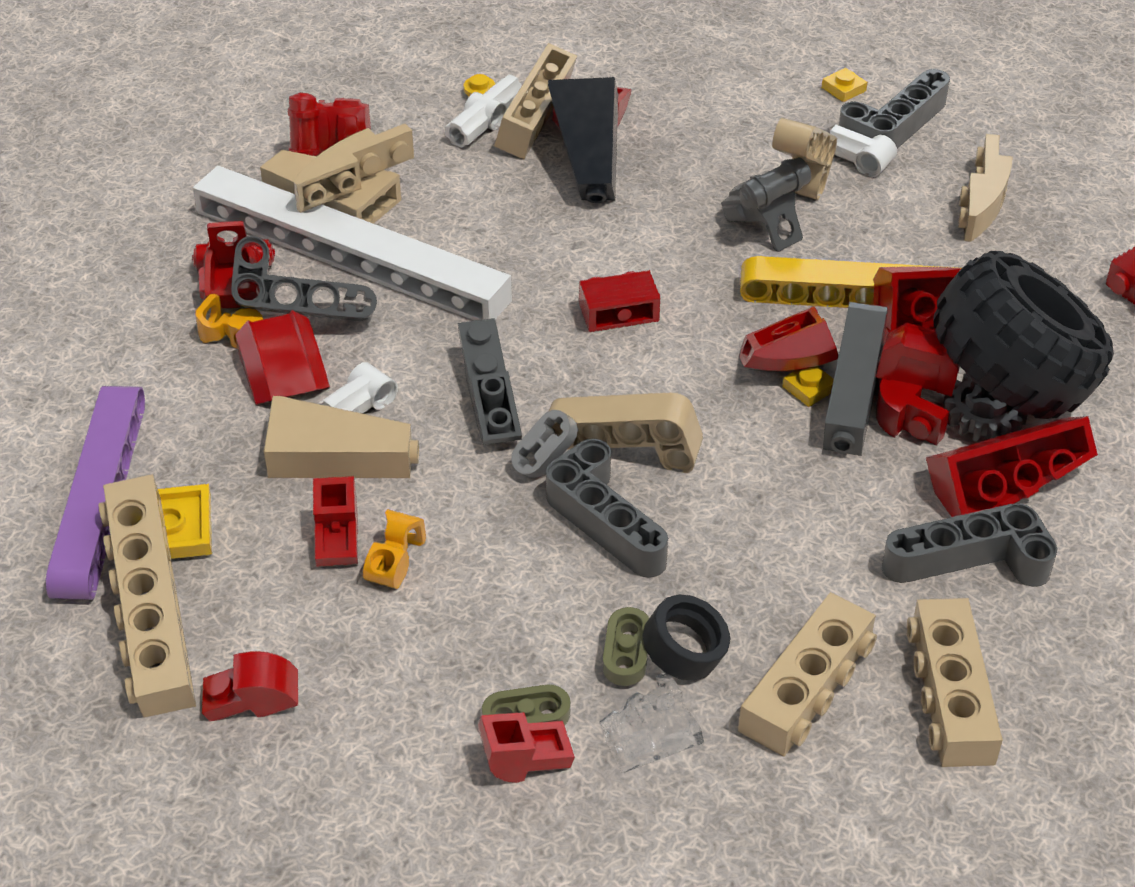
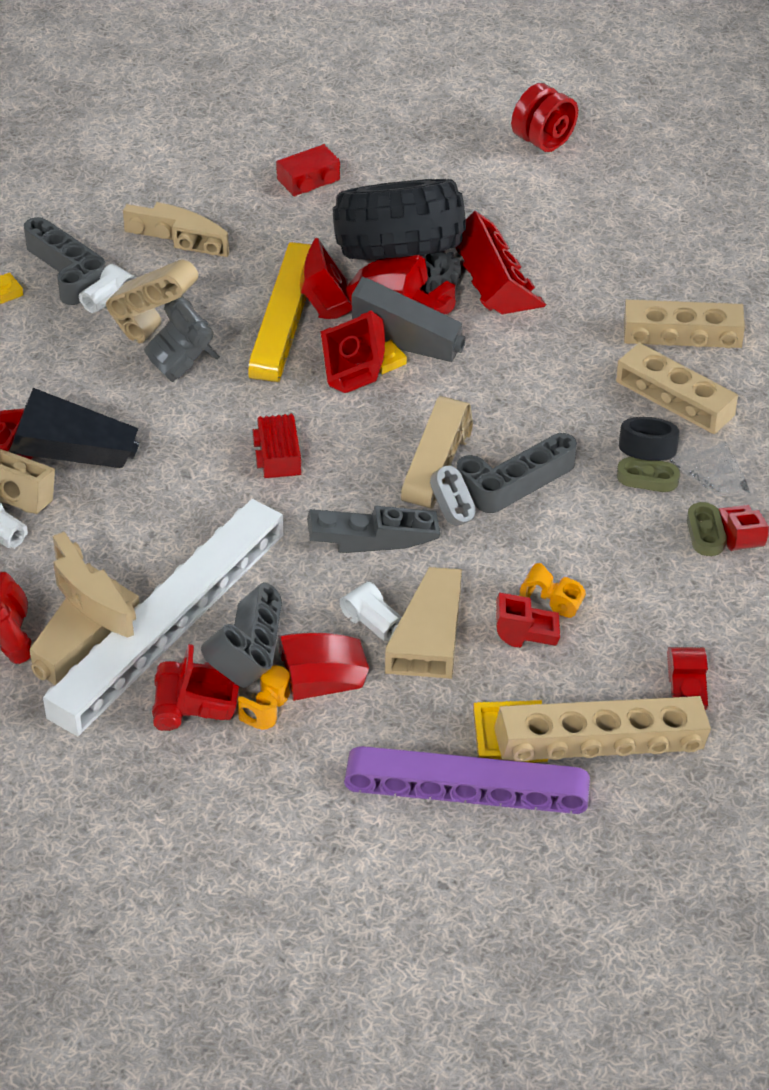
camera: 85 degrees left, 0 degrees up
(970, 541) = (559, 285): dark grey beam -> none

